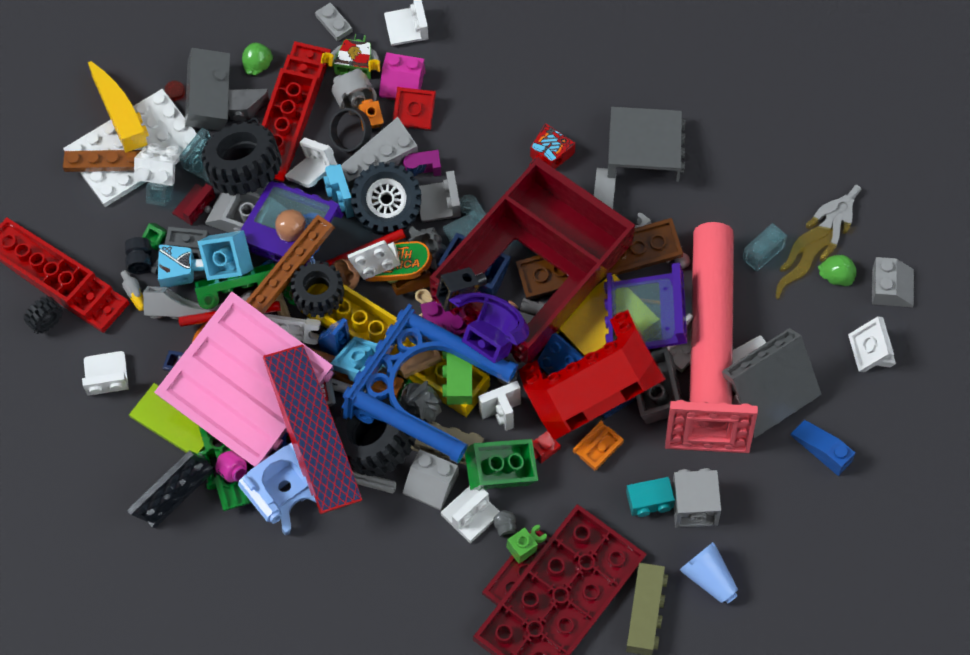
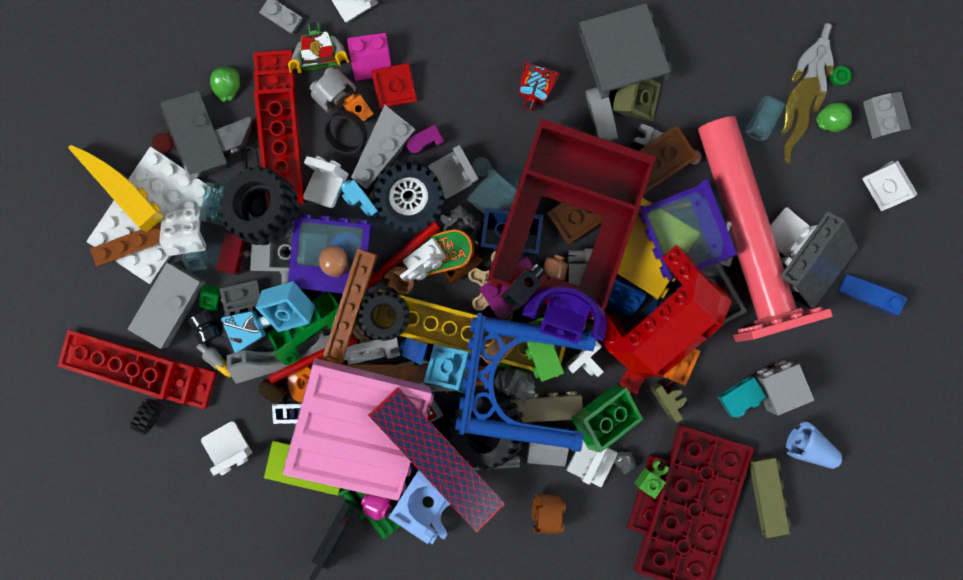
camera: 20 degrees left, 25 degrees up
(111, 225) = (166, 305): none -> light grey brick
(175, 336) = (271, 391): none -> dark brown brick
(402, 542) = (547, 513): none -> dark orange brick
(574, 470) = (670, 398): none -> olive piece
(644, 191) = (637, 100): none -> olive slope
(856, 236) = (840, 76): none -> green tile

